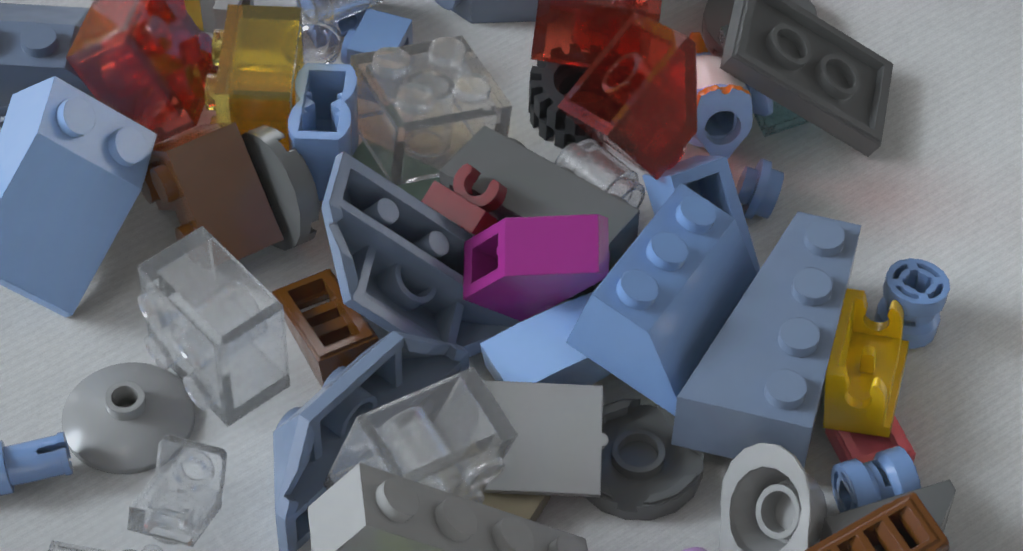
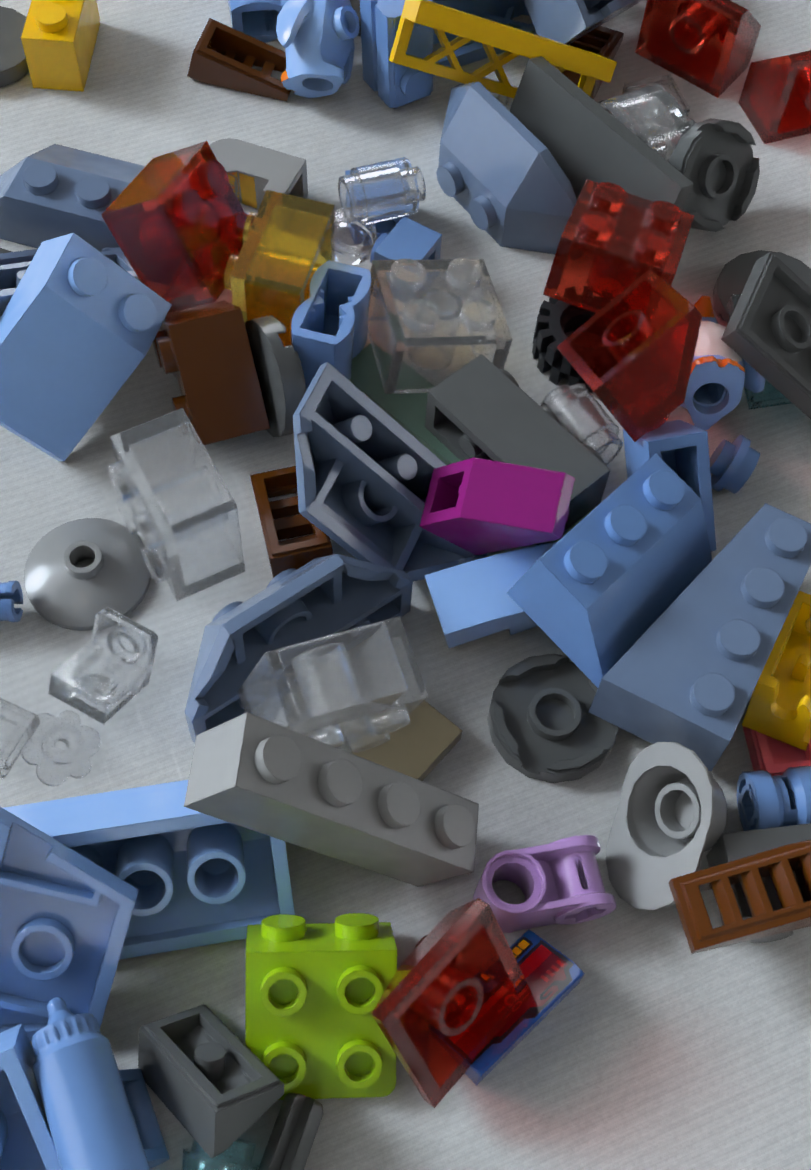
camera: 10 degrees right, 10 degrees up
(461, 206) = (438, 430): dark red tile -> none
(556, 439) = (470, 684): light grey piece -> none

